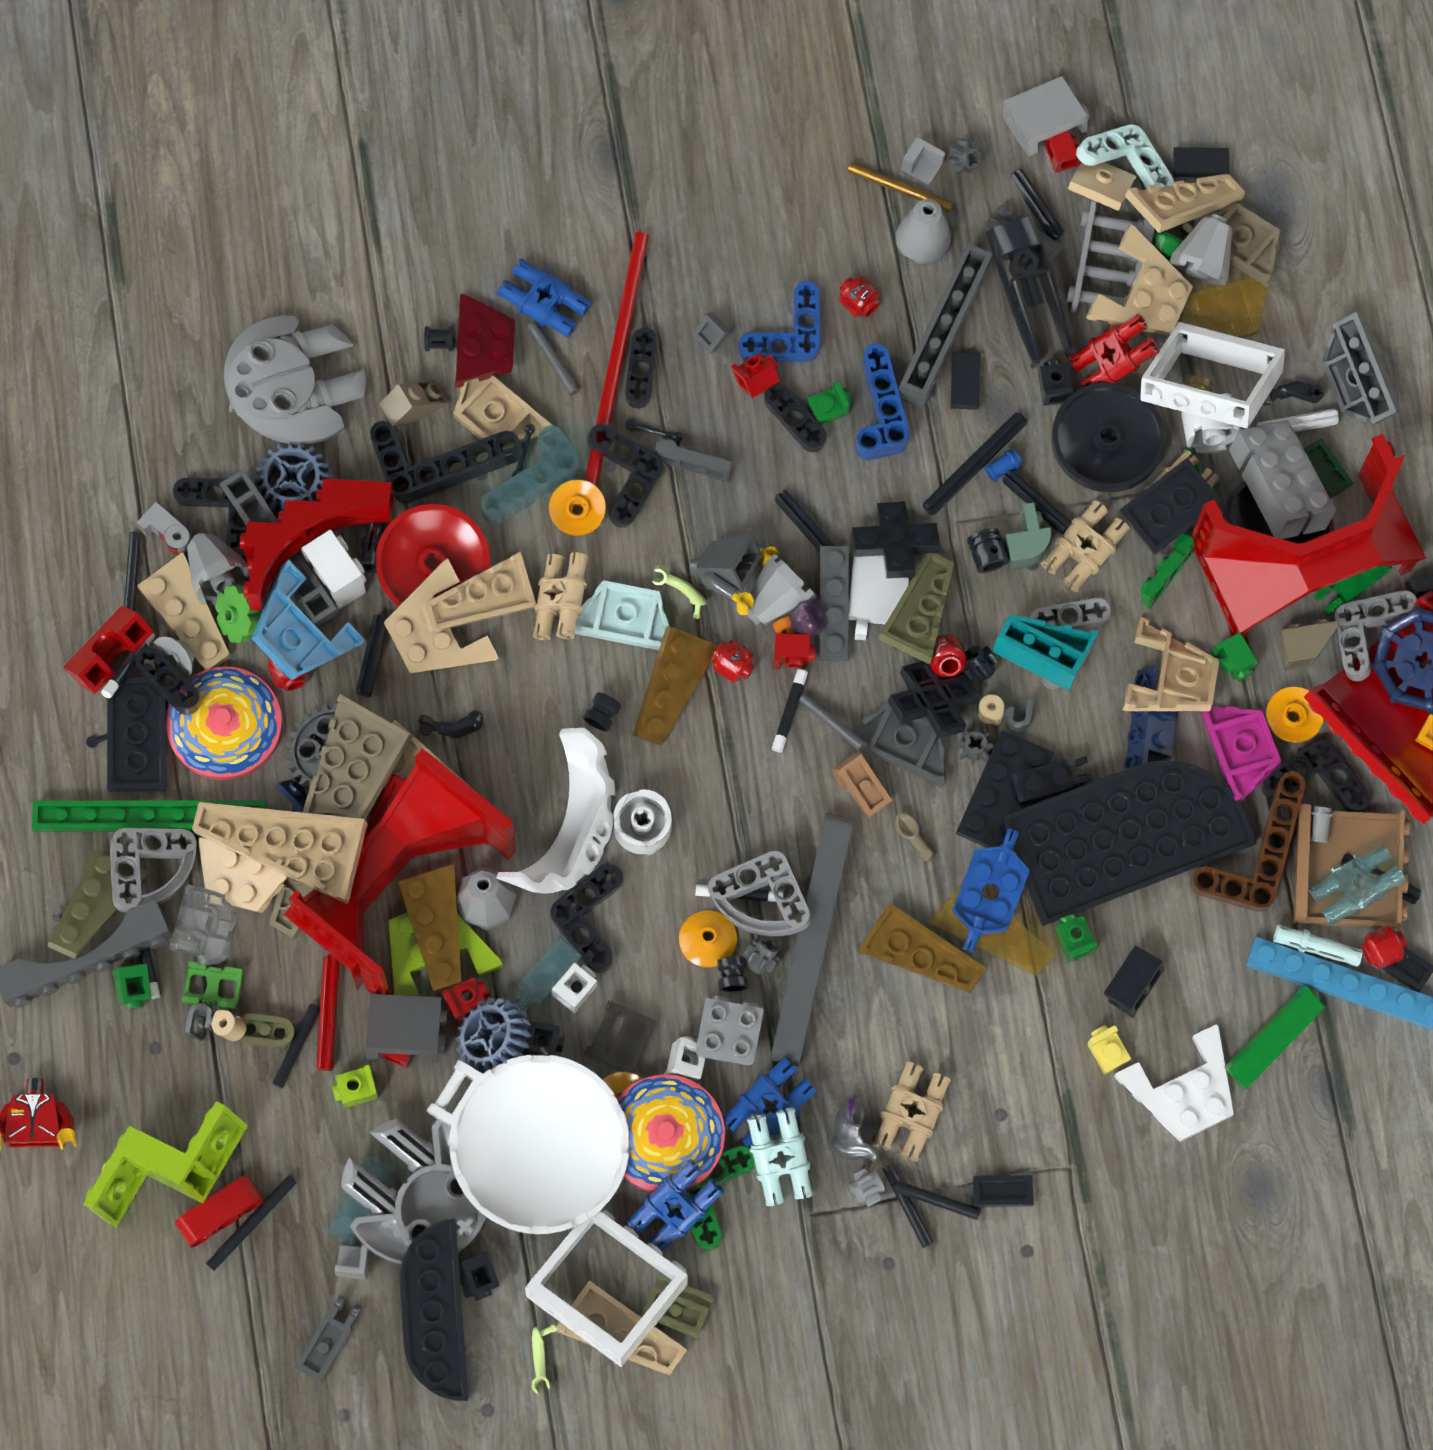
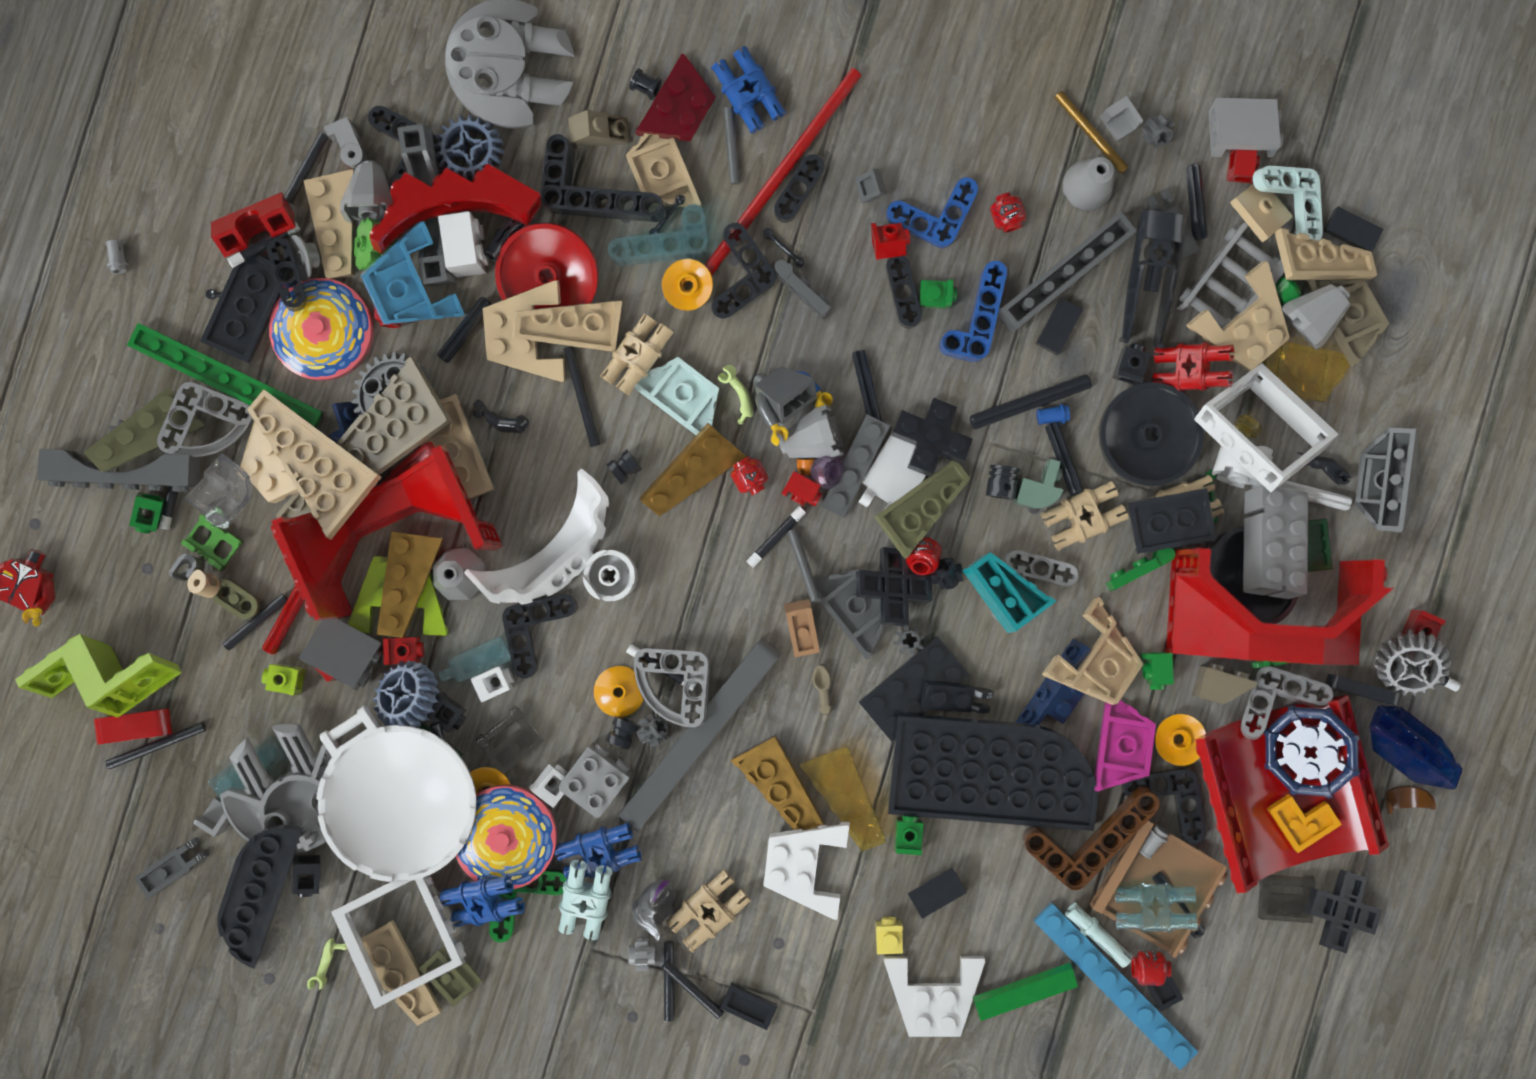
camera: 30 degrees right, 15 degrees up
(523, 665) = (581, 397): none -> black bar
(974, 1021) = (793, 865): none -> white wing
(993, 712) = (938, 618): leg -> none
(995, 867) = (851, 790): blue plate -> none

